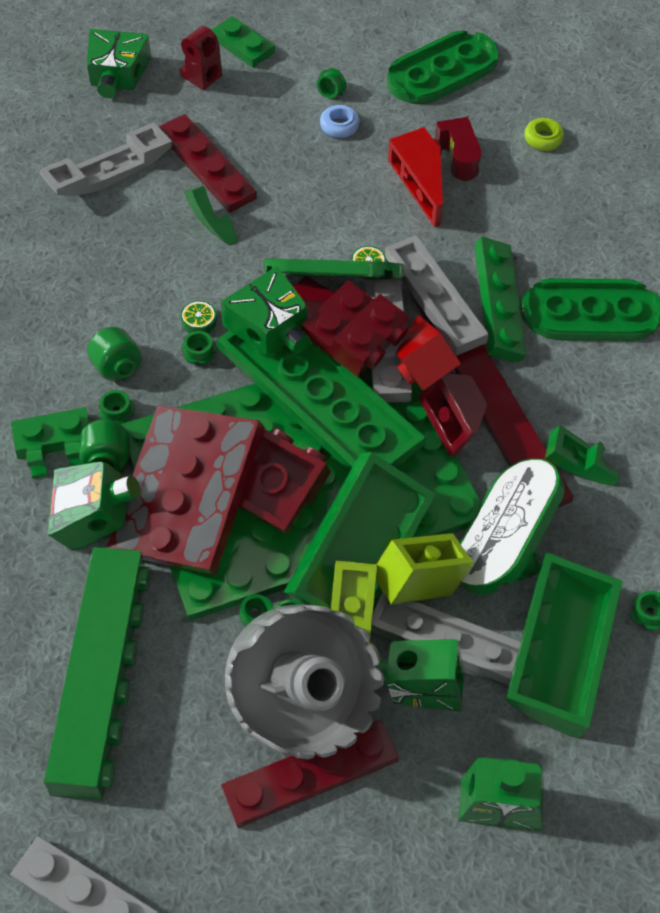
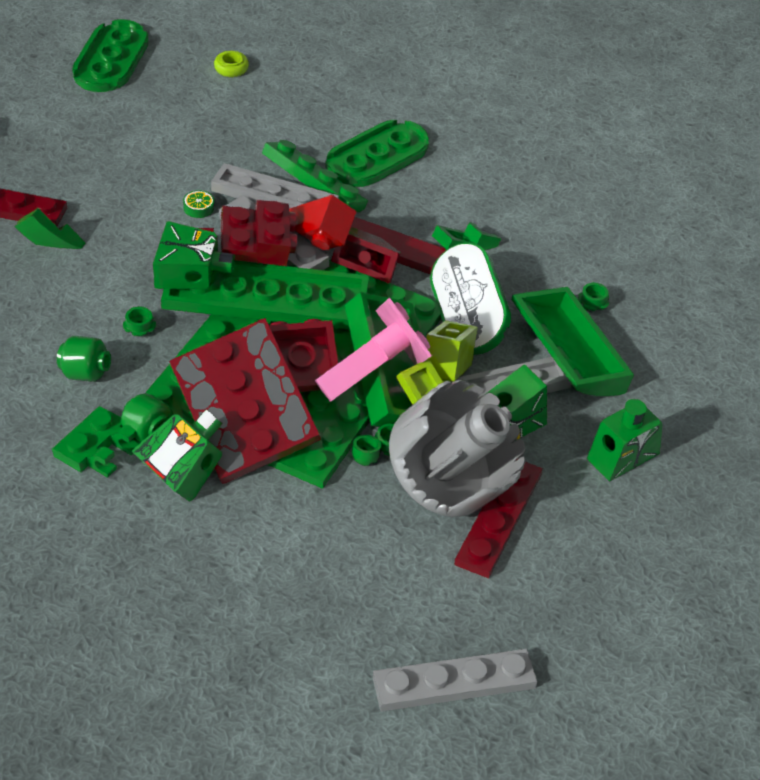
camera: 45 degrees left, 10 degrees down
(96, 675) = (304, 552): green brick -> none
(116, 399) = (117, 387): green plate -> none
(198, 316) = (114, 304): green tile -> none
(325, 83) = (36, 108): green plate -> none
(336, 524) = (381, 348): none -> bright pink piece
(337, 268) = (191, 212): green tile -> none
(339, 130) = (78, 132): light blue piece -> none
(418, 164) = (177, 126): red slope -> none
(462, 145) = (185, 97): dark red leg -> none

